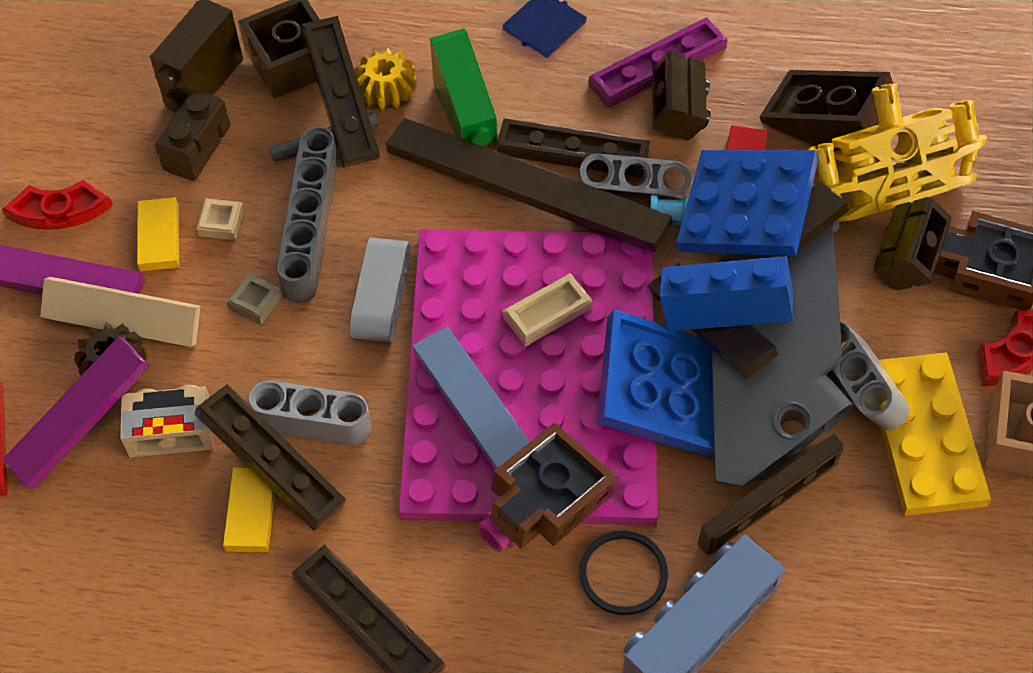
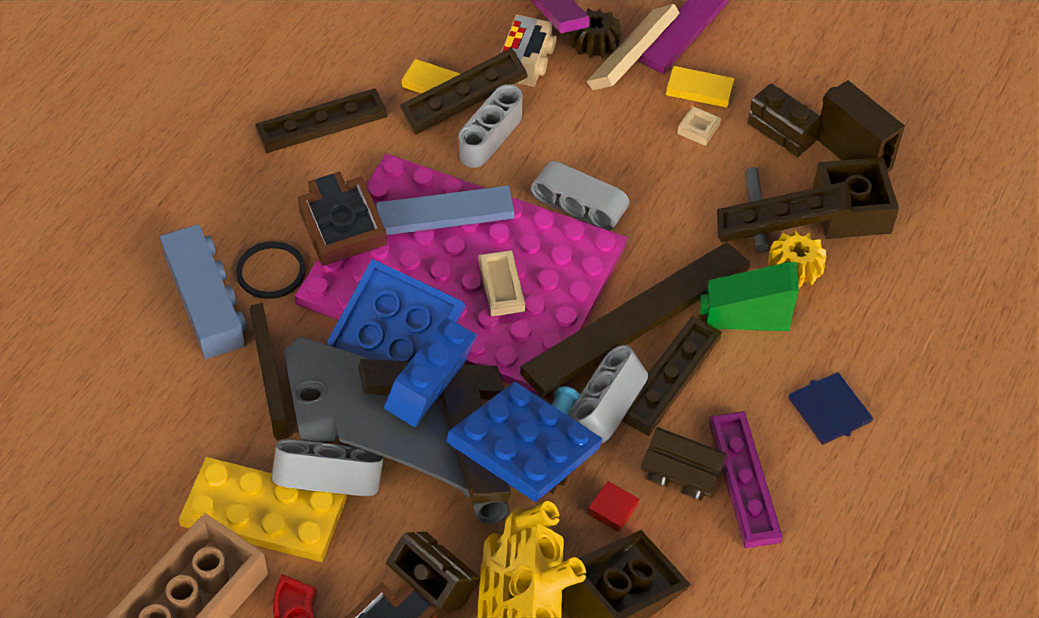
camera: 110 degrees right, 5 degrees down
(57, 208) = (752, 38): red tile -> none
(254, 298) = (613, 127): dark tan tile -> none
(308, 215) = (672, 170): dark grey beam -> none

